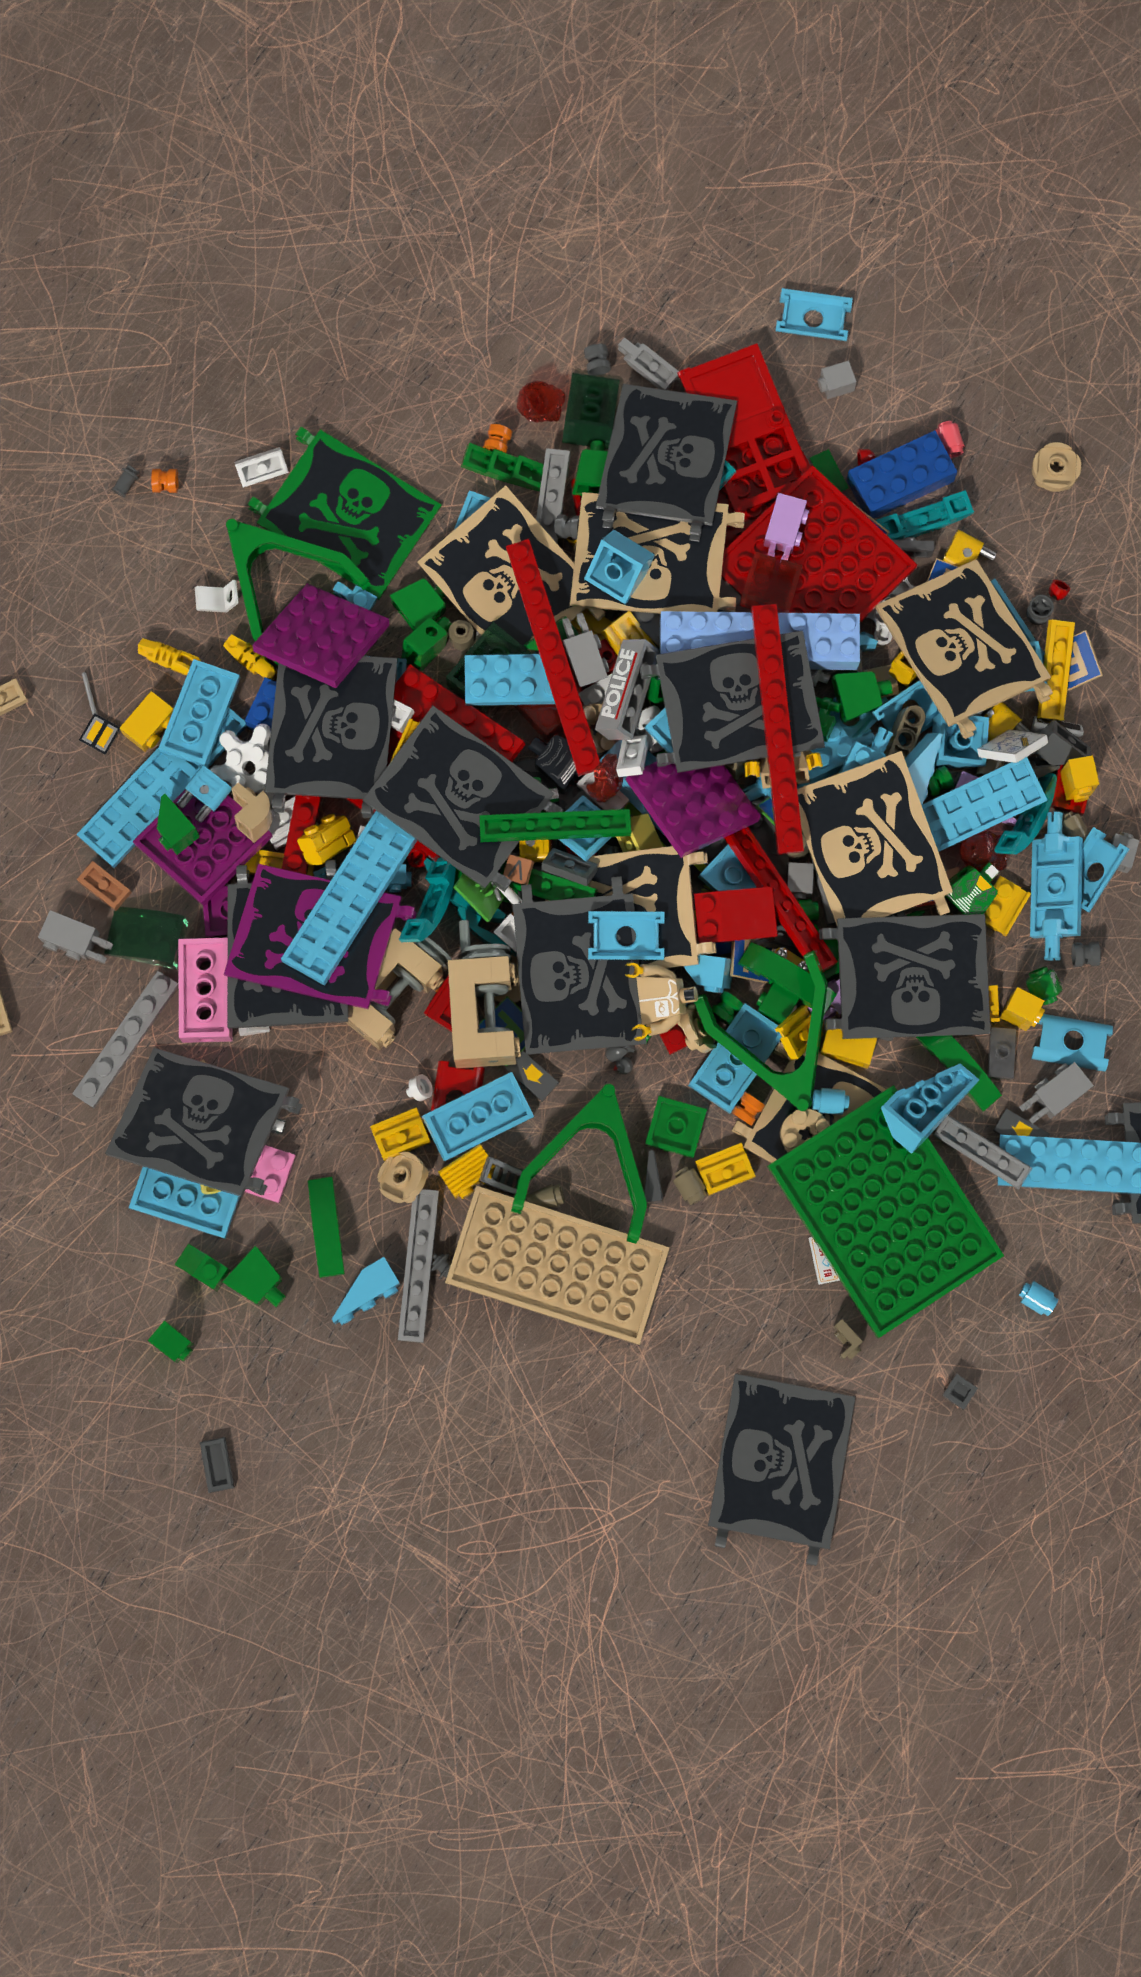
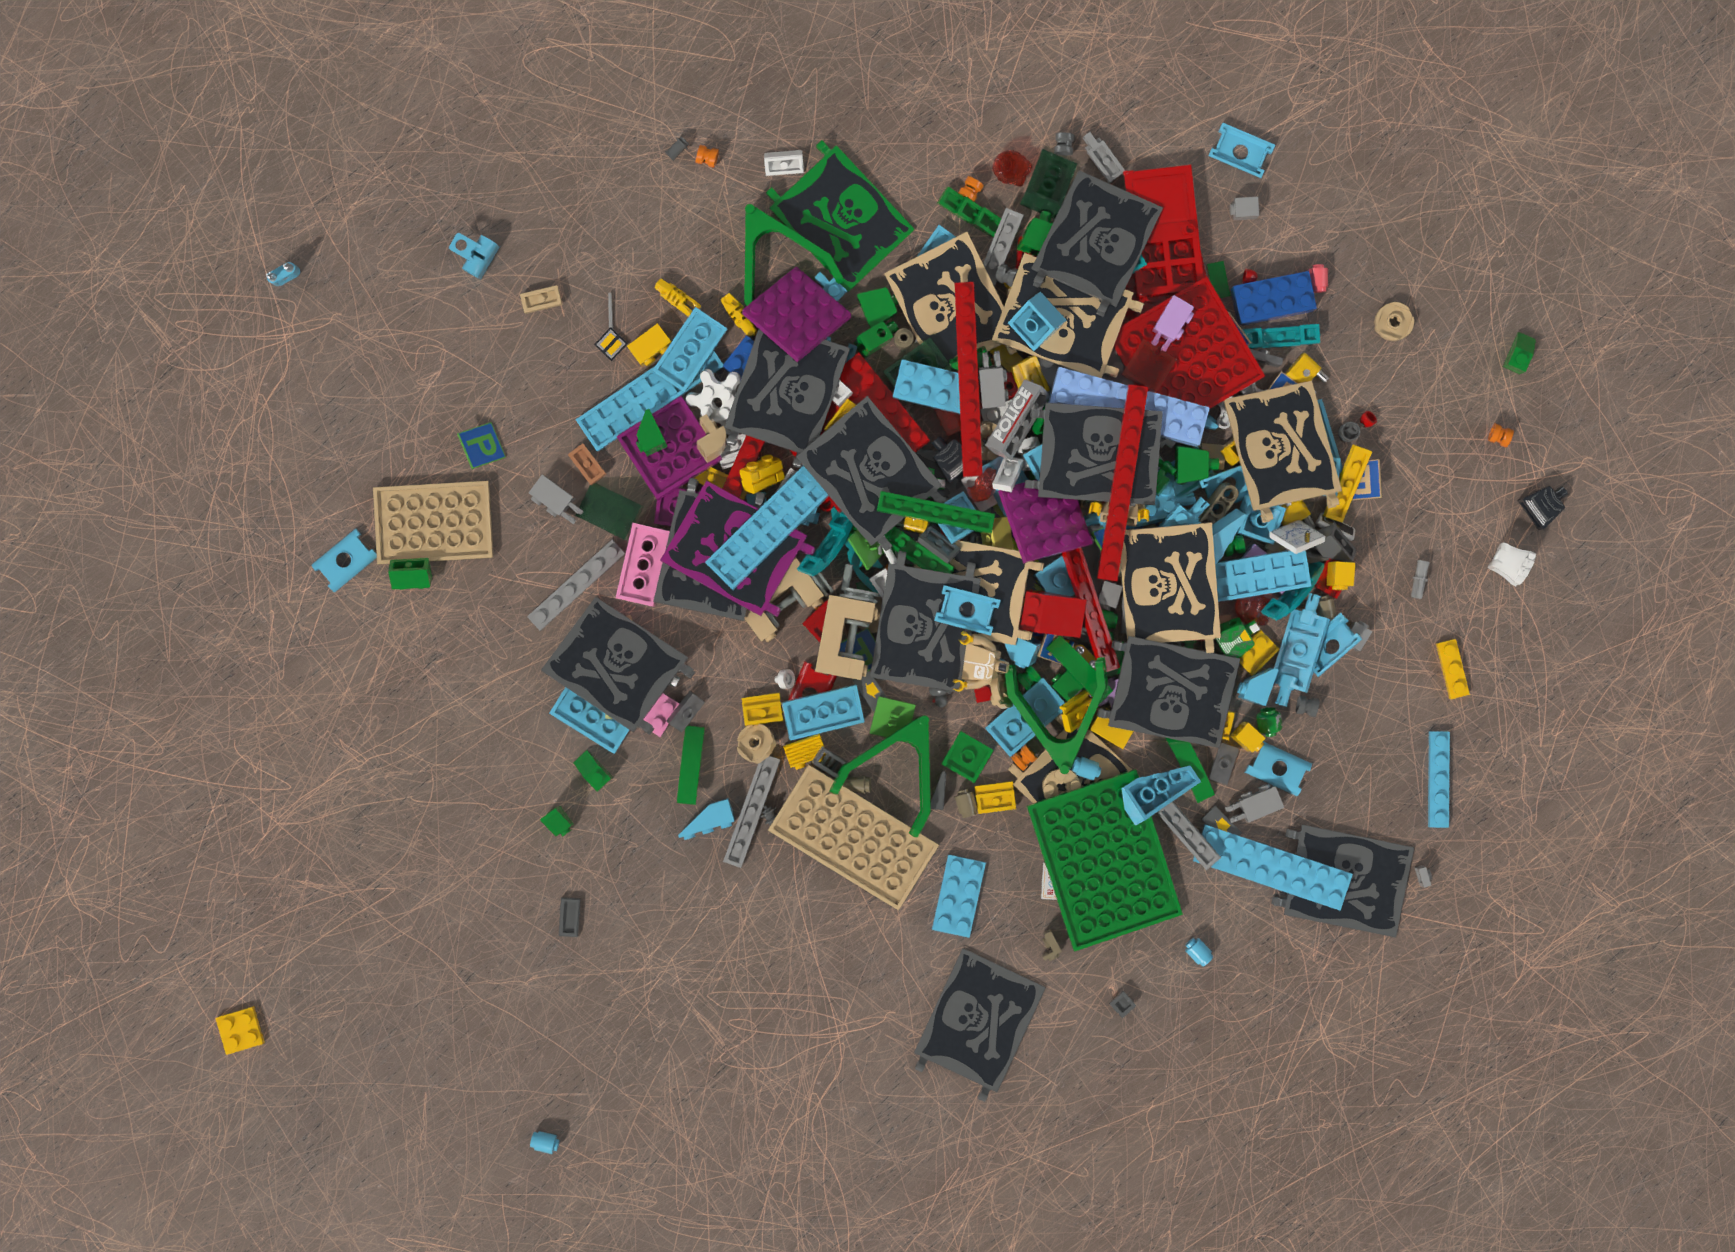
camera: 15 degrees right, 10 degrees up
(206, 788) = (682, 411): medium azure piece -> none
(216, 598) = (724, 260): white bracket -> none
(254, 1771) = (544, 1142): none -> medium azure brick
(256, 1279) = (630, 790): green torso -> none
(303, 1161) = (685, 711): none -> flat silver plate
(518, 869) = (899, 536): nougat tile -> none
(565, 1100) = (890, 716): none -> bright green piece
(712, 1307) = (958, 895): none -> medium azure plate
(1017, 945) = (1258, 687): none -> medium azure slope

